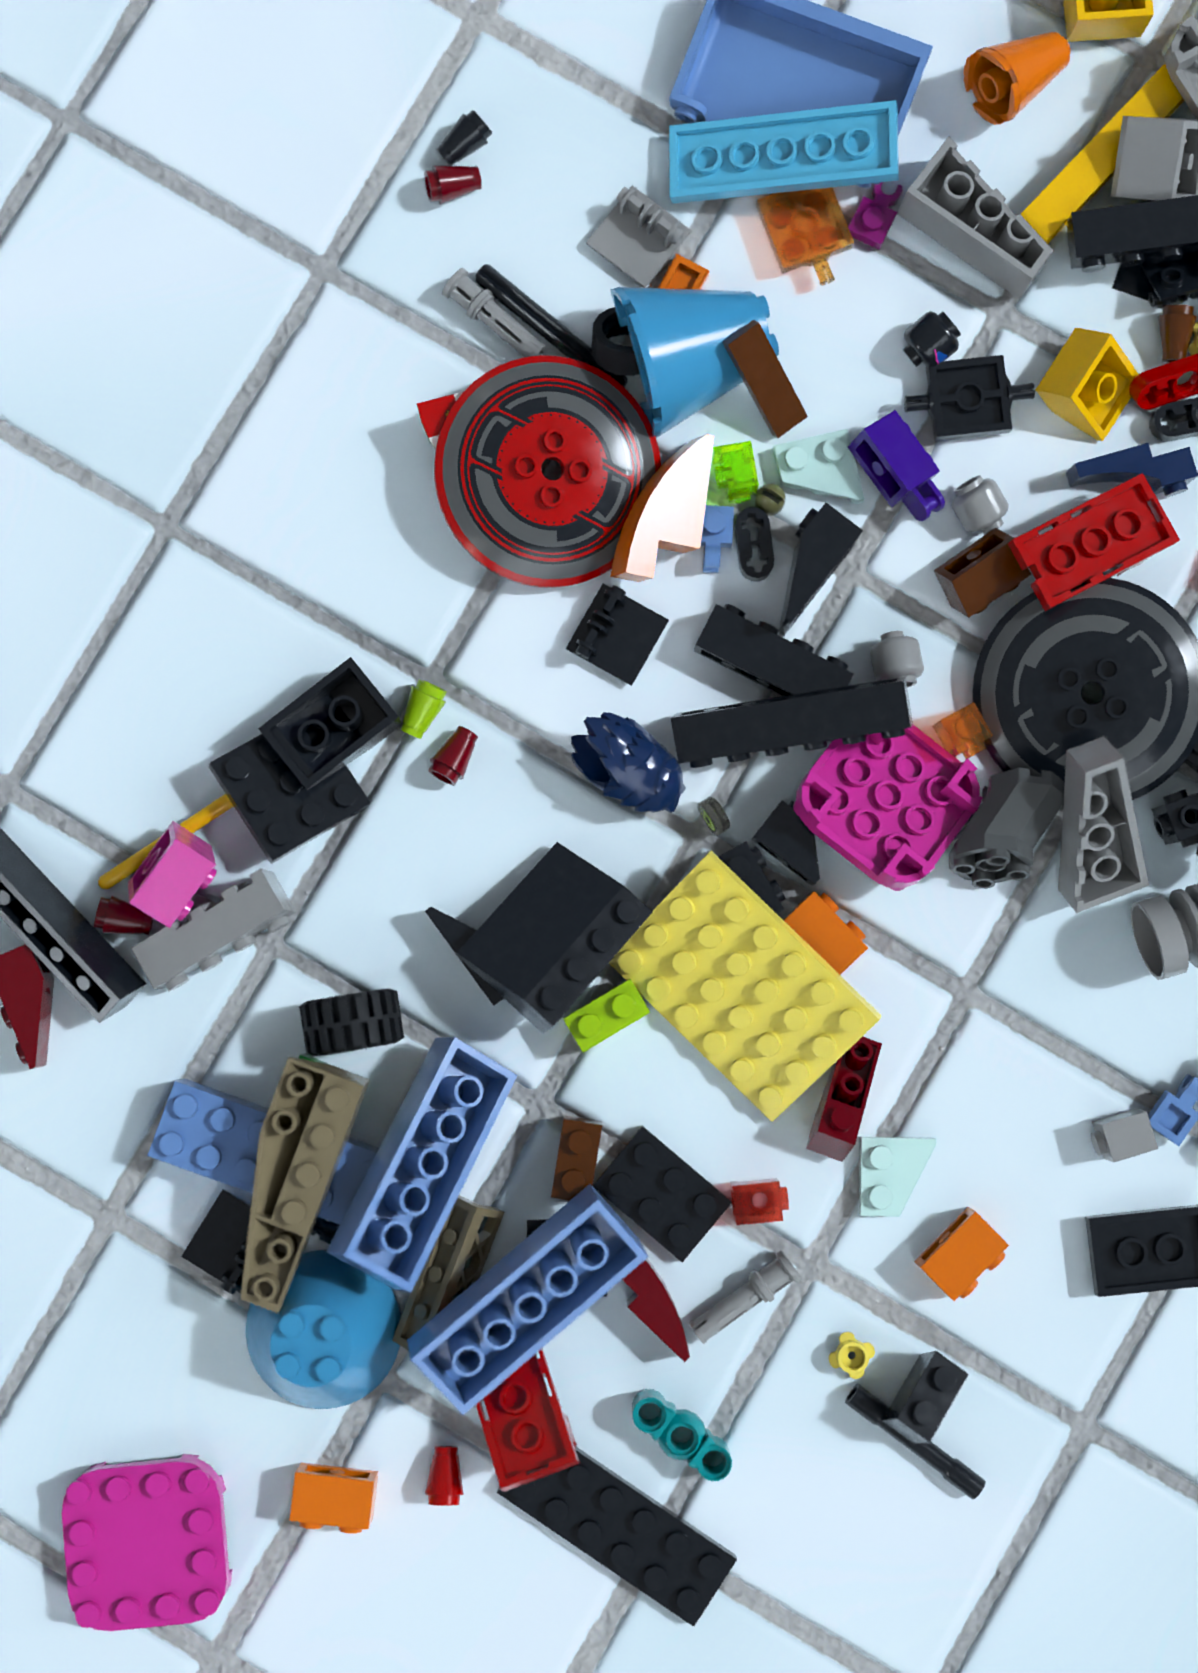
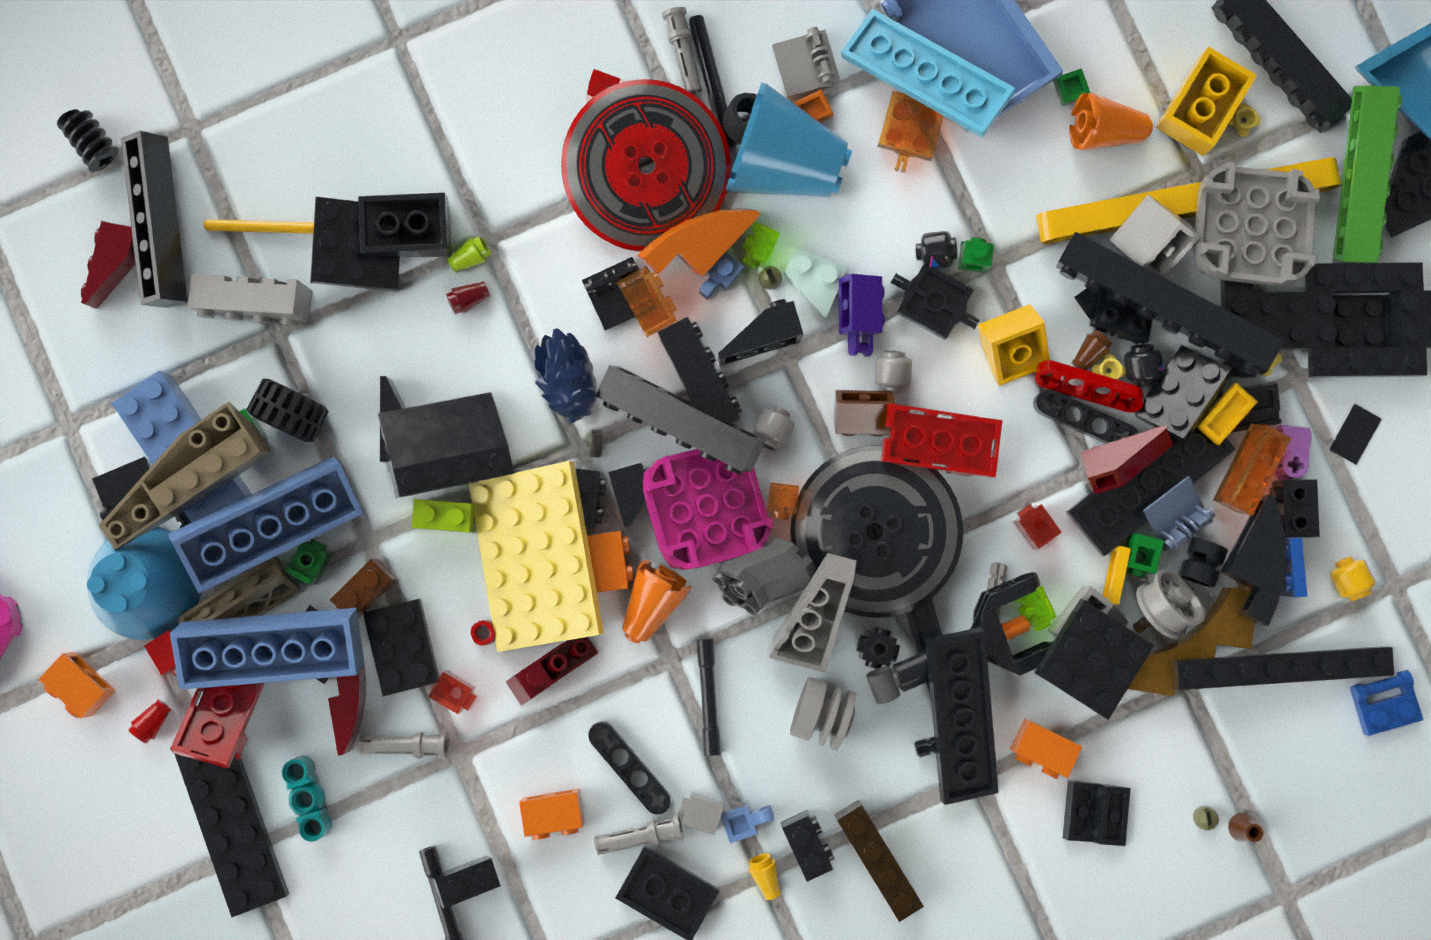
camera: 35 degrees right, 0 degrees up
(121, 917) = (202, 252): dark red cone -> none
(172, 875) = (245, 247): dark pink brick -> none
(410, 1387) = (162, 653): none -> red brick
(501, 1186) = (320, 558): none -> green brick
(659, 618) = (647, 301): none -> clear orange brick
(745, 1124) = (474, 629): none -> red axle
(762, 542) = (746, 301): black beam -> none
(765, 378) = (816, 201): reddish brown tile -> none
(854, 1366) = (440, 833): light yellow plate -> none
(874, 217) = (958, 152): magenta plate -> none
(890, 1172) = (546, 733): light aqua wing -> none
(903, 942) = (652, 600): none -> orange cone
(947, 60) = (1071, 86): none -> green plate
(973, 221) = (1014, 195): light grey wedge -> none
(978, 315) = (975, 255): none -> green brick
(1007, 1146) = (633, 764): none -> black beam
(1066, 1039) = (710, 729): none -> black piece
(1086, 1196) = (651, 833): none -> light grey pin
(1164, 472) = (1019, 430): dark blue slope -> none

